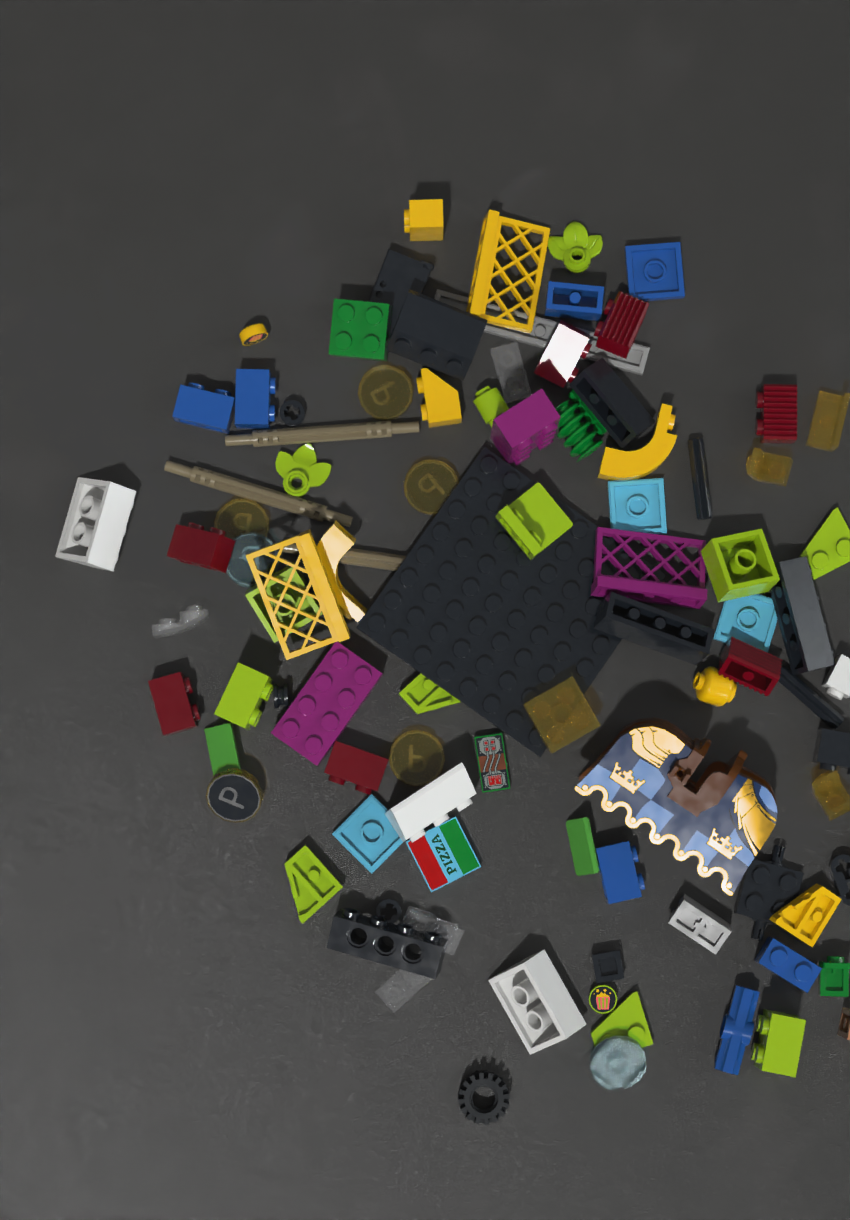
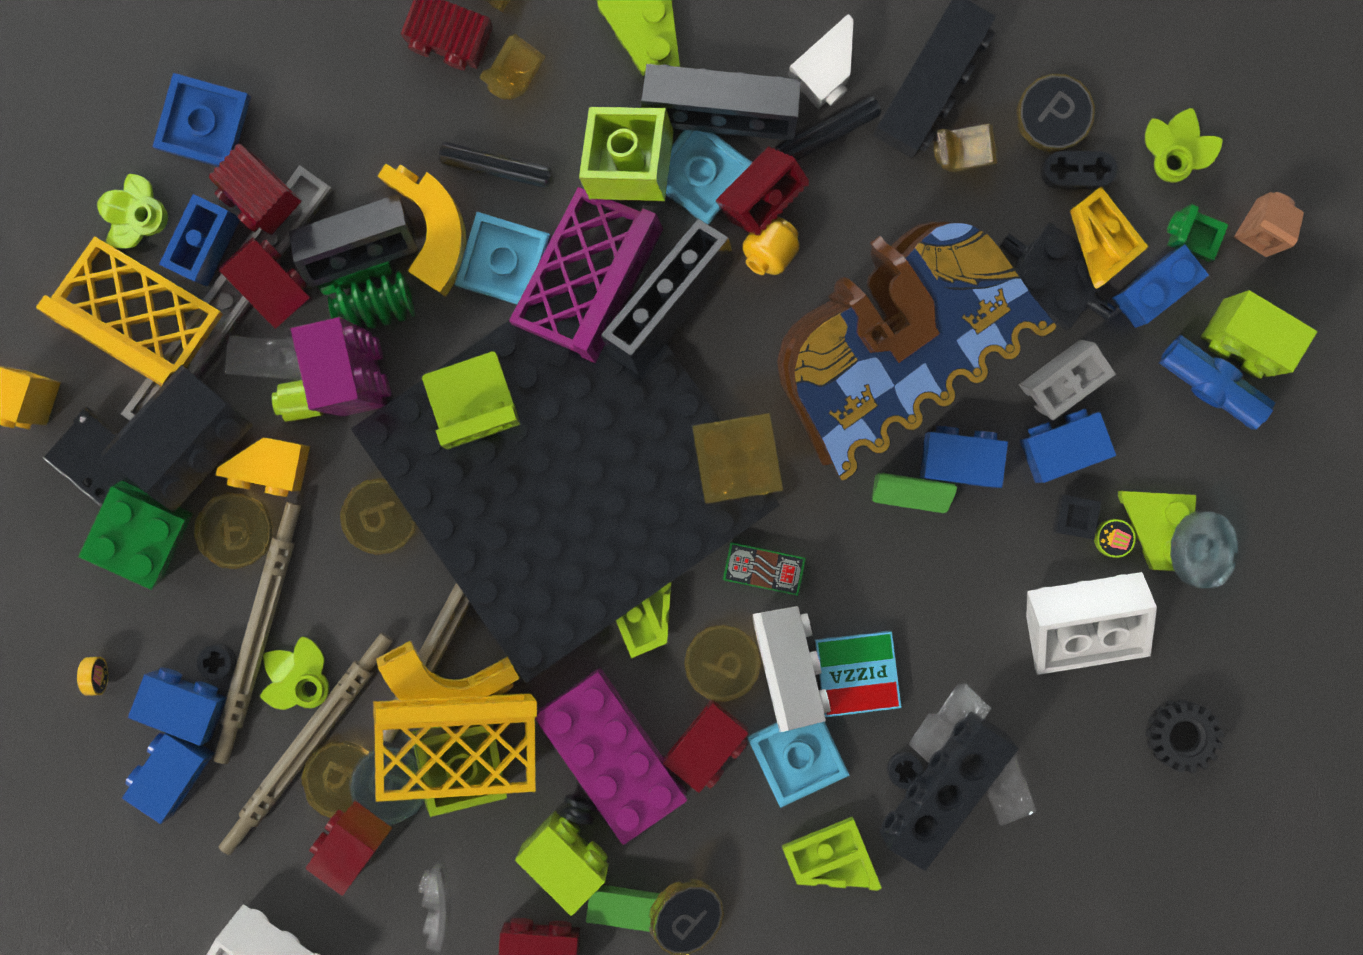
camera: 75 degrees left, 5 degrees up
(654, 941) = (1067, 446): none -> blue brick

